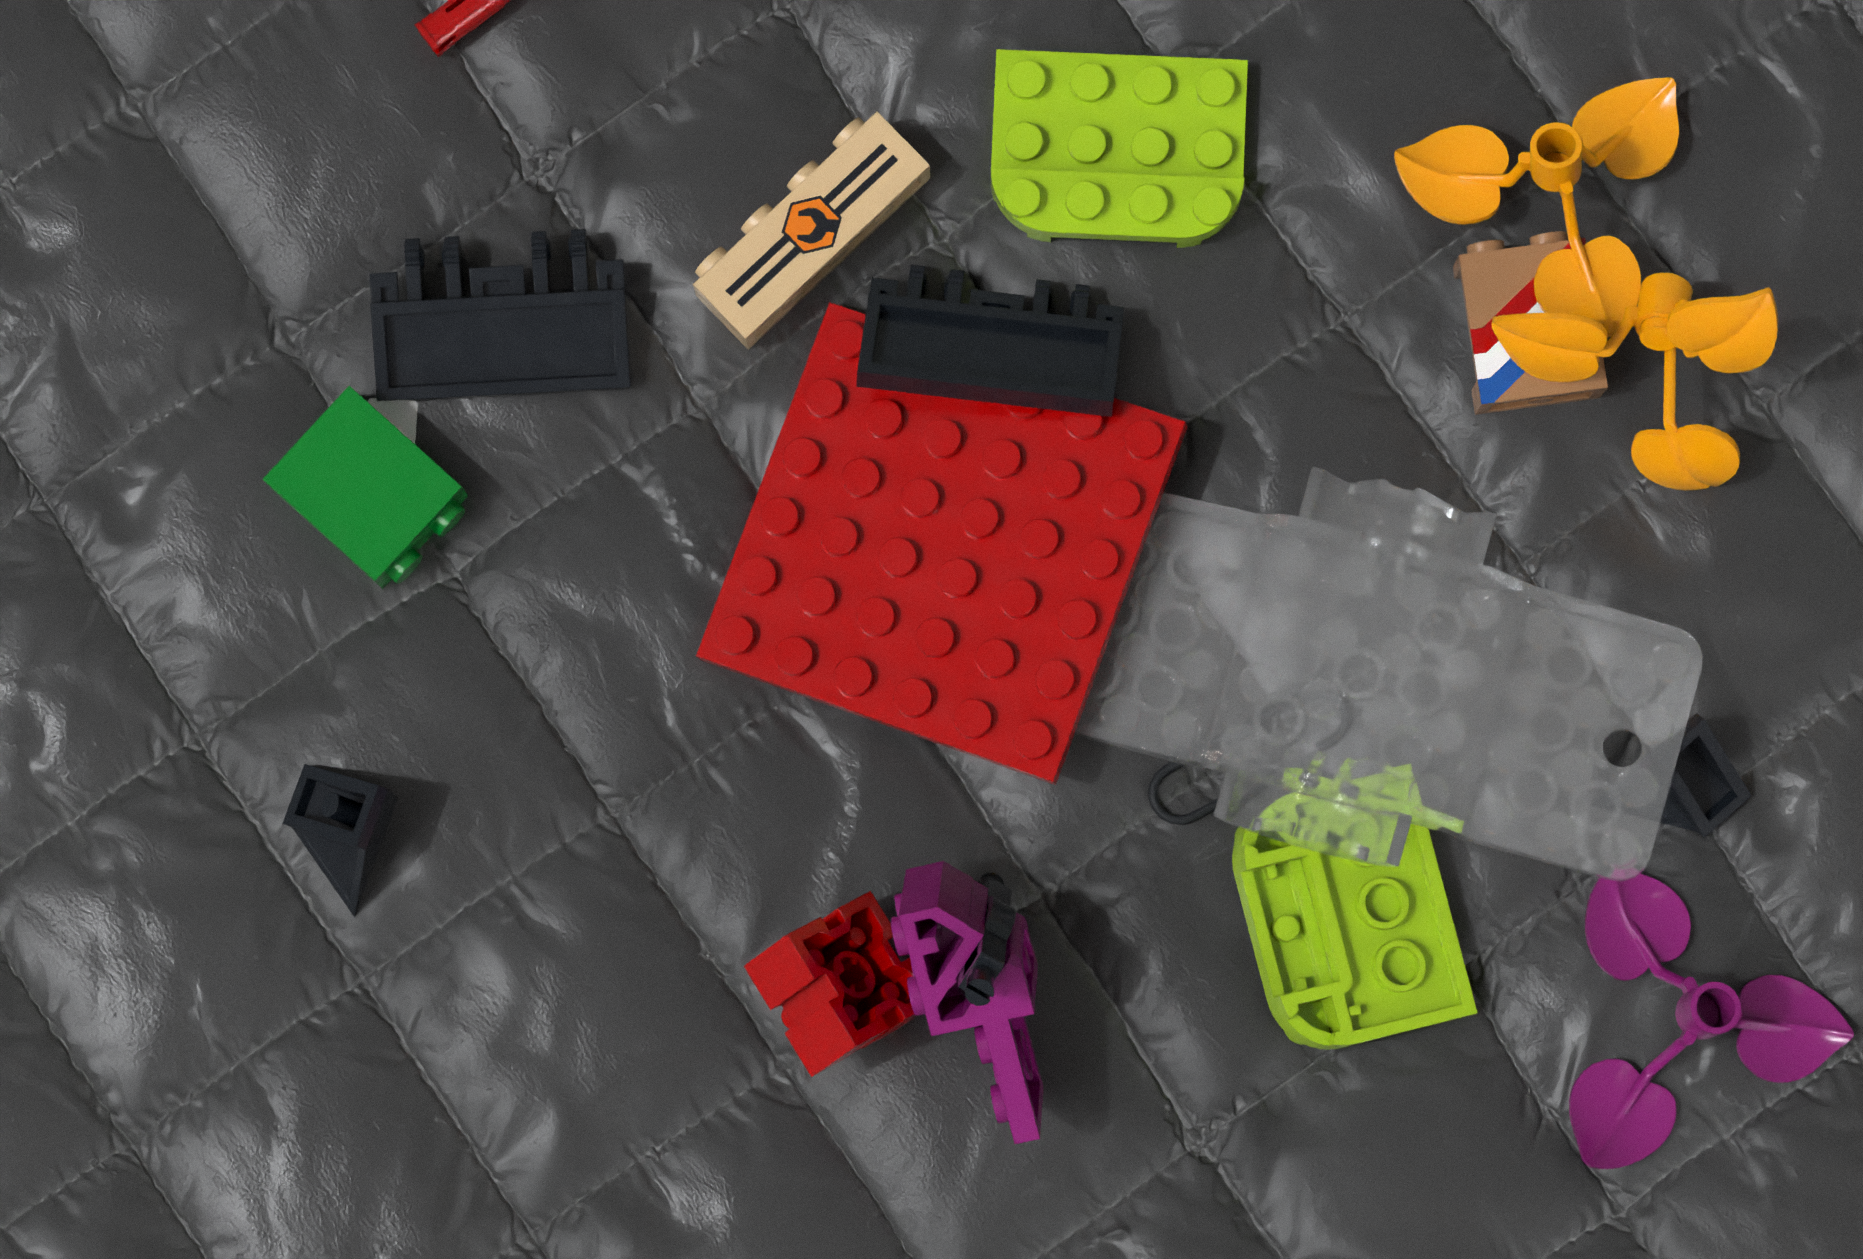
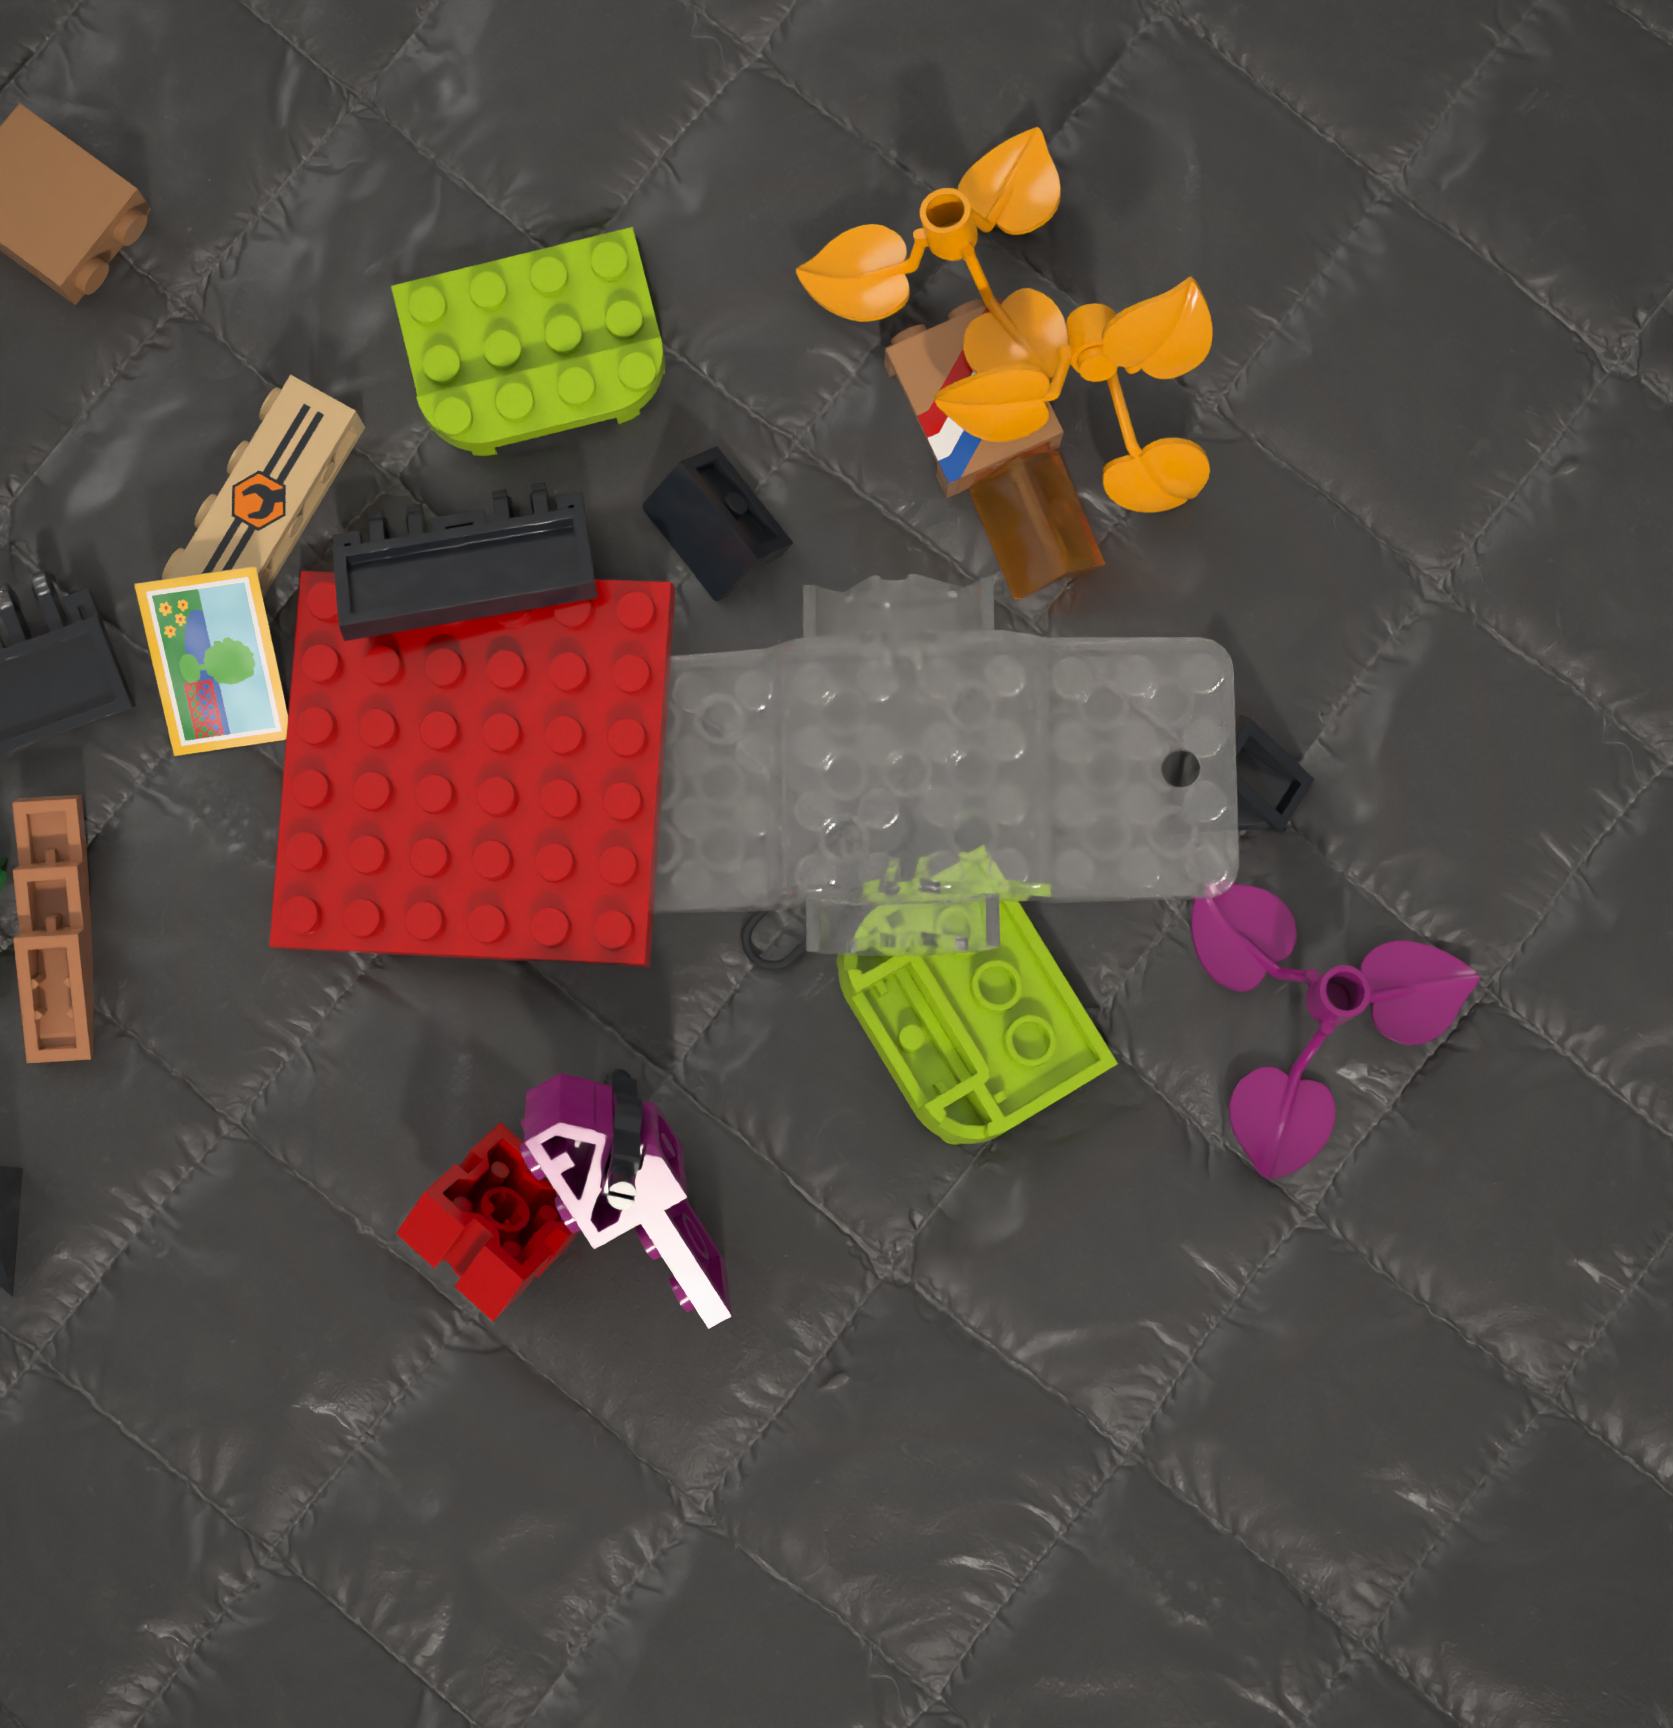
camera: 20 degrees left, 0 degrees up
(495, 577) = (54, 929): none -> nougat slope
(723, 366) = (213, 660): none -> sticker
(1243, 373) = (715, 522): none -> black panel
(1554, 466) = (1035, 523): none -> clear orange panel

